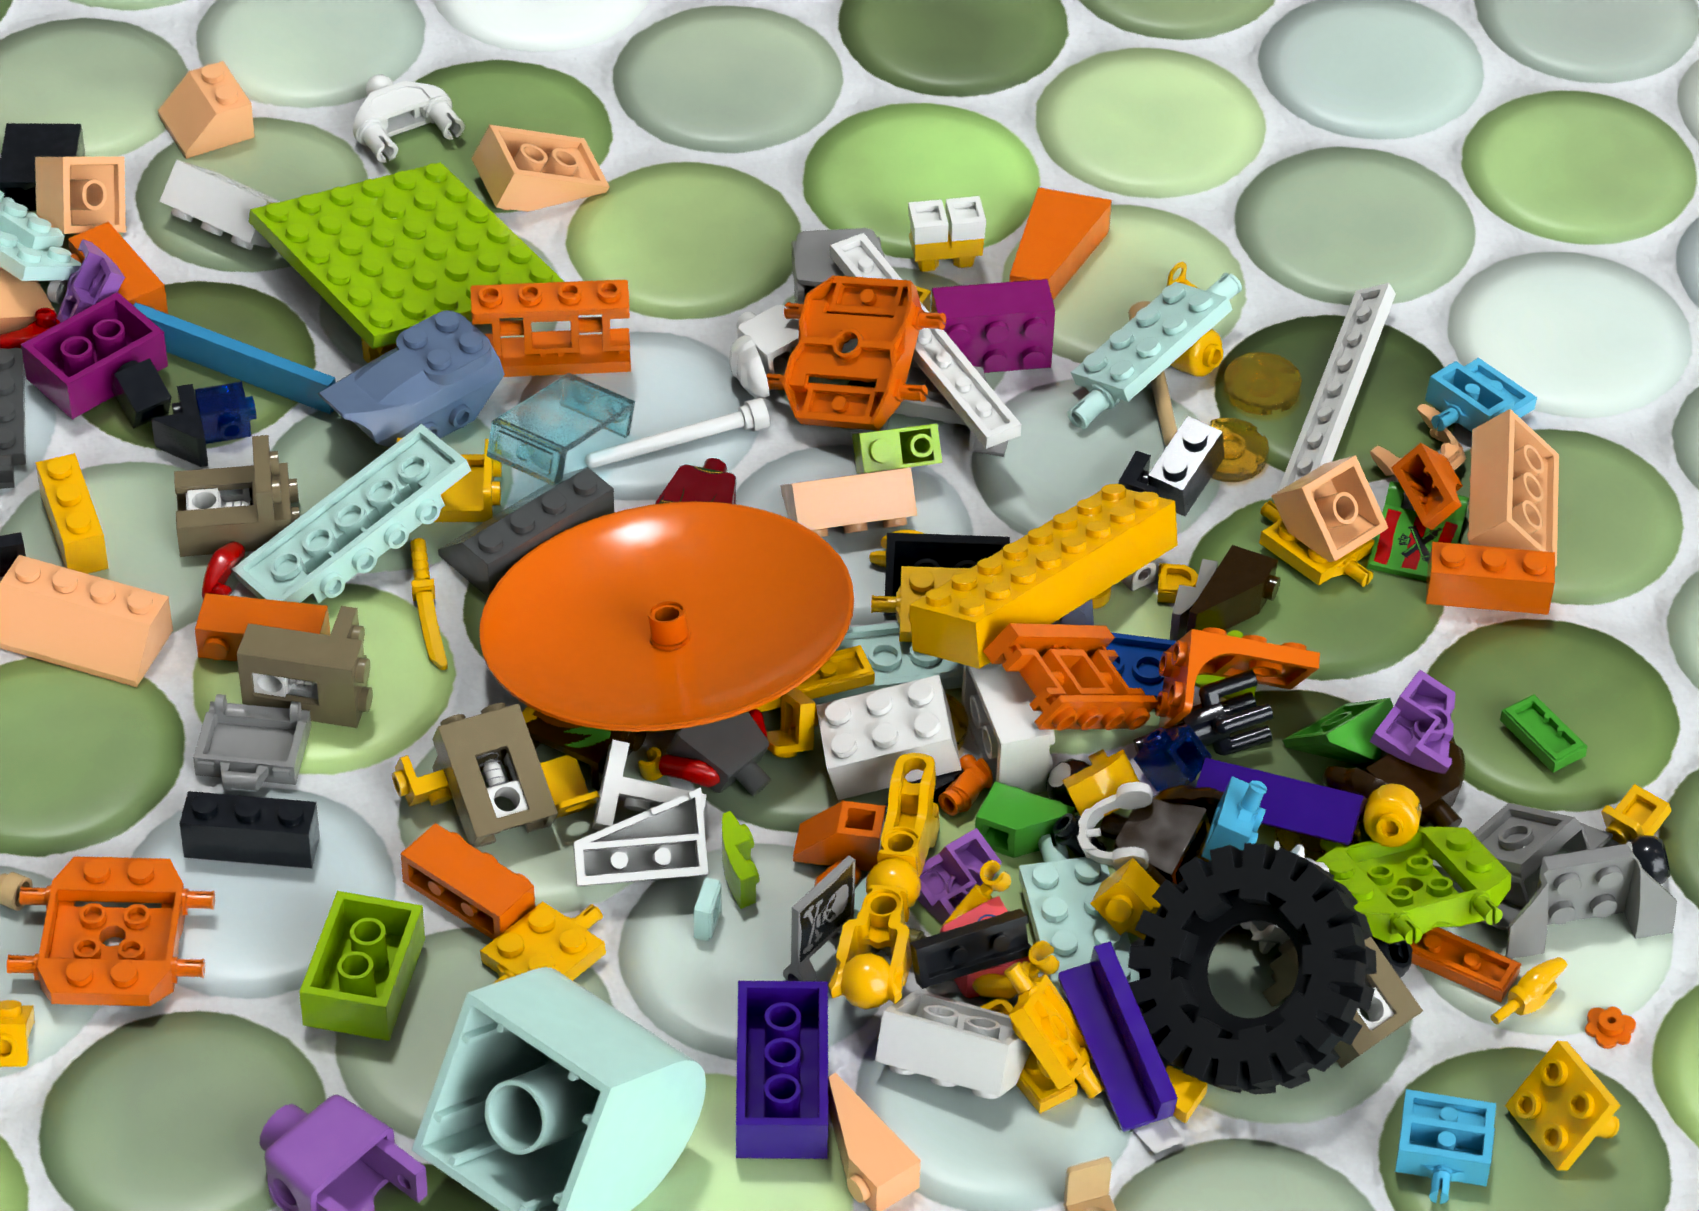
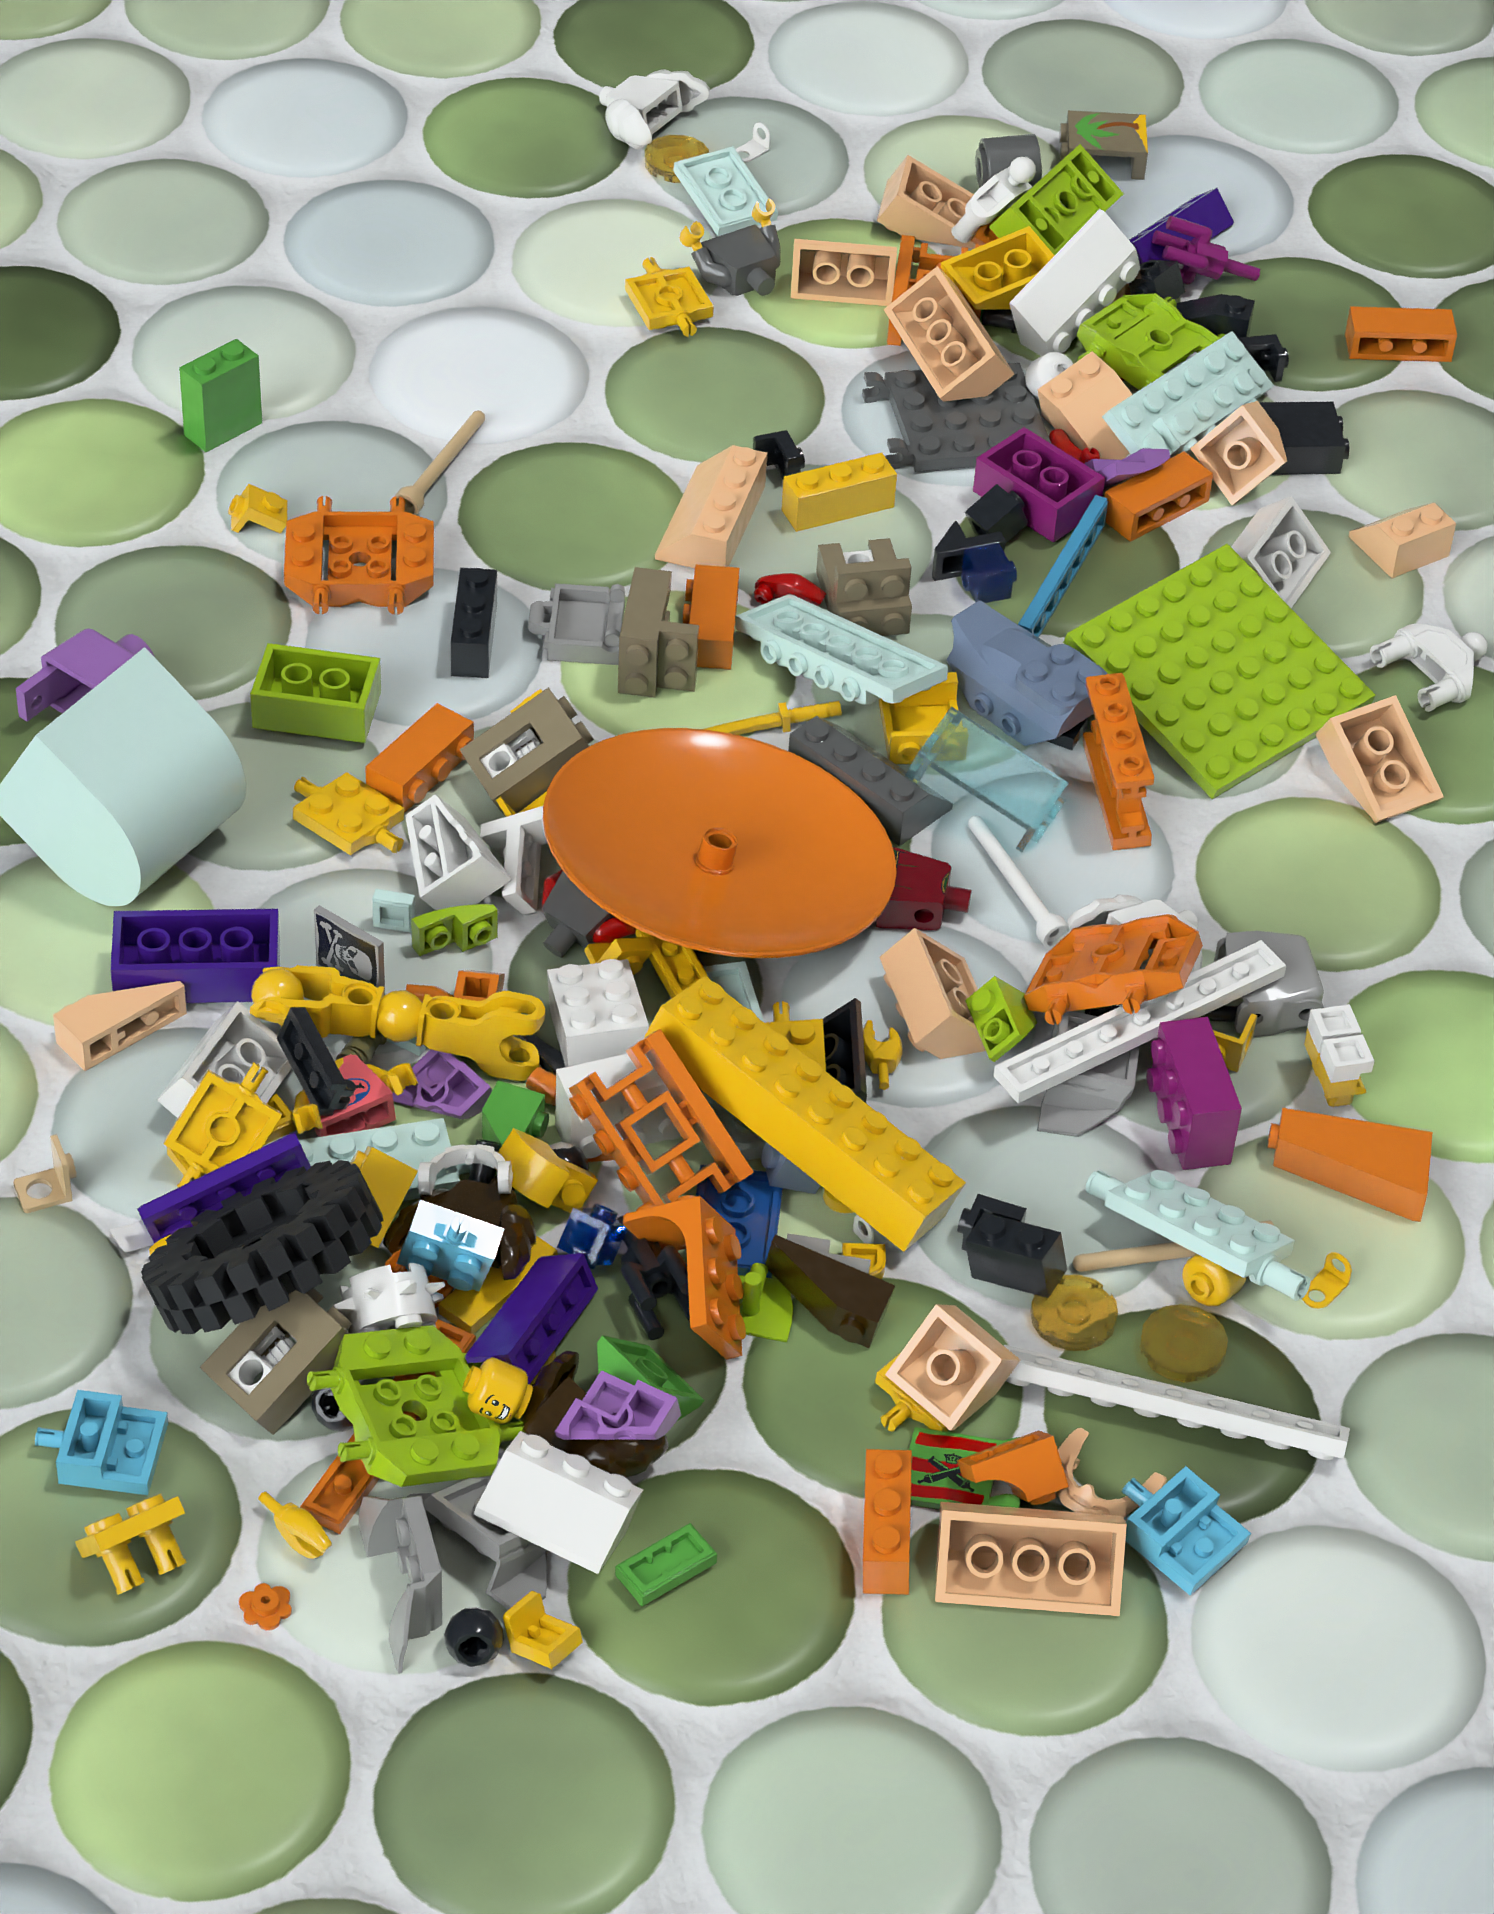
camera: 85 degrees right, 0 degrees up
(1508, 784) = (559, 1501): none -> white slope

